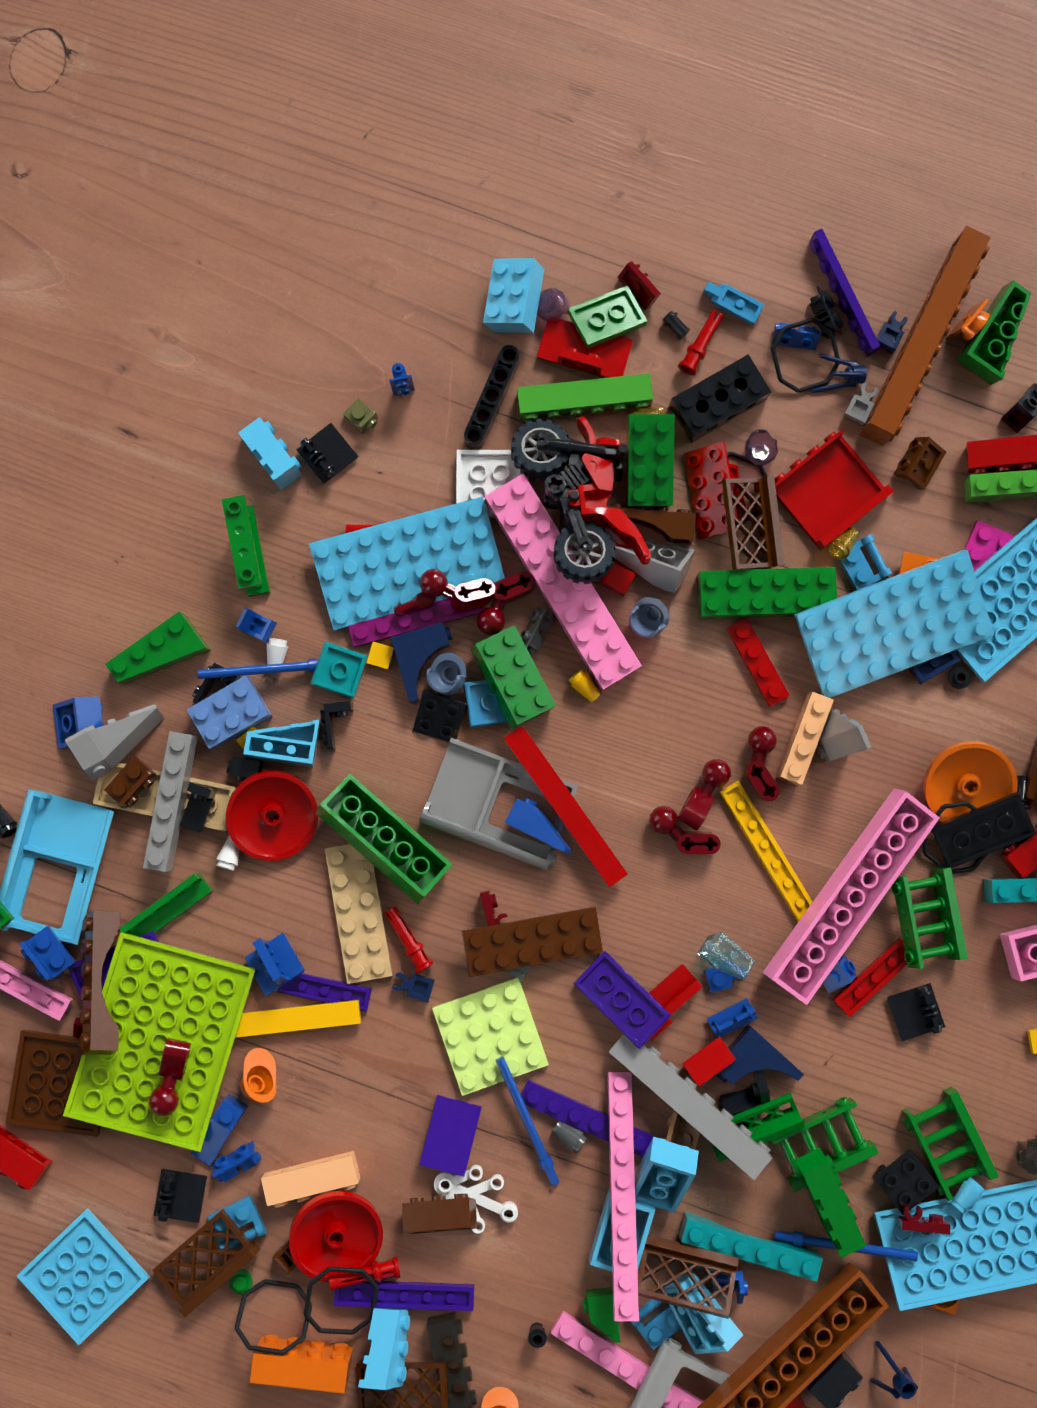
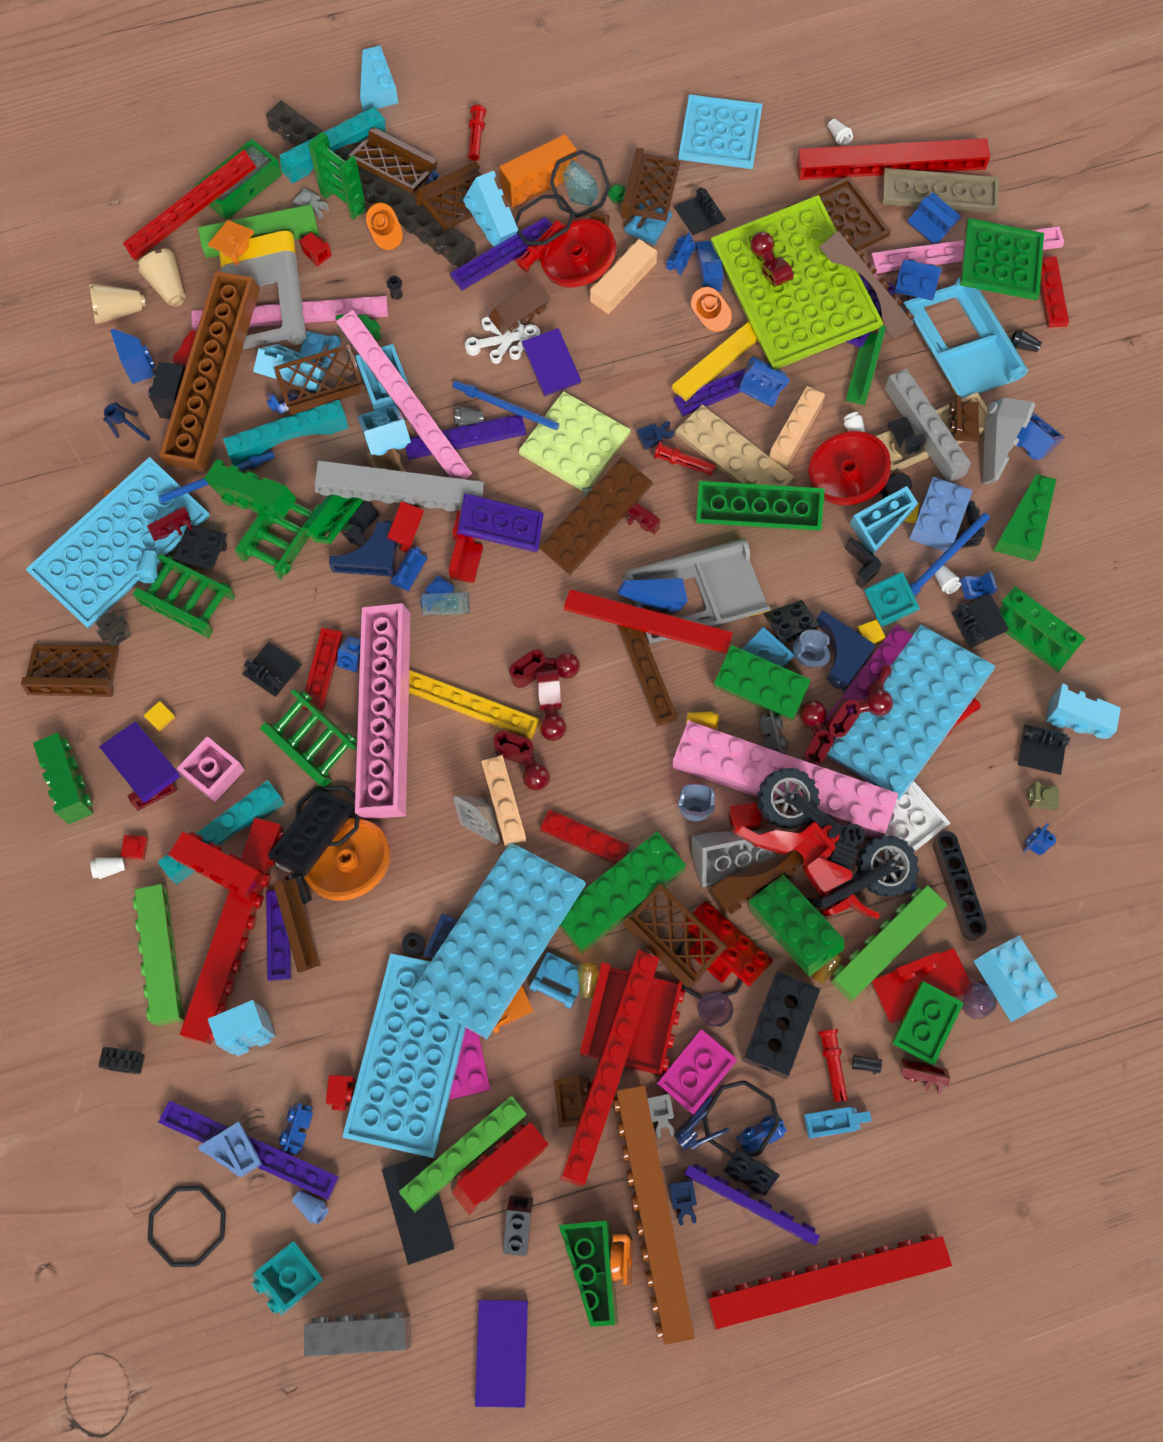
camera: 145 degrees right, 15 degrees down
(273, 1315) = (580, 184): none -> clear light blue slope
(281, 594) = (979, 620): none -> black hinge
(282, 893) = (797, 427): none -> light nougat brick
(599, 760) = (648, 675): none -> reddish brown plate
(810, 414) = (697, 1072): none -> dark pink plate
(829, 201) = (828, 1282): none -> red brick
(881, 460) = (609, 1069): none -> red brick

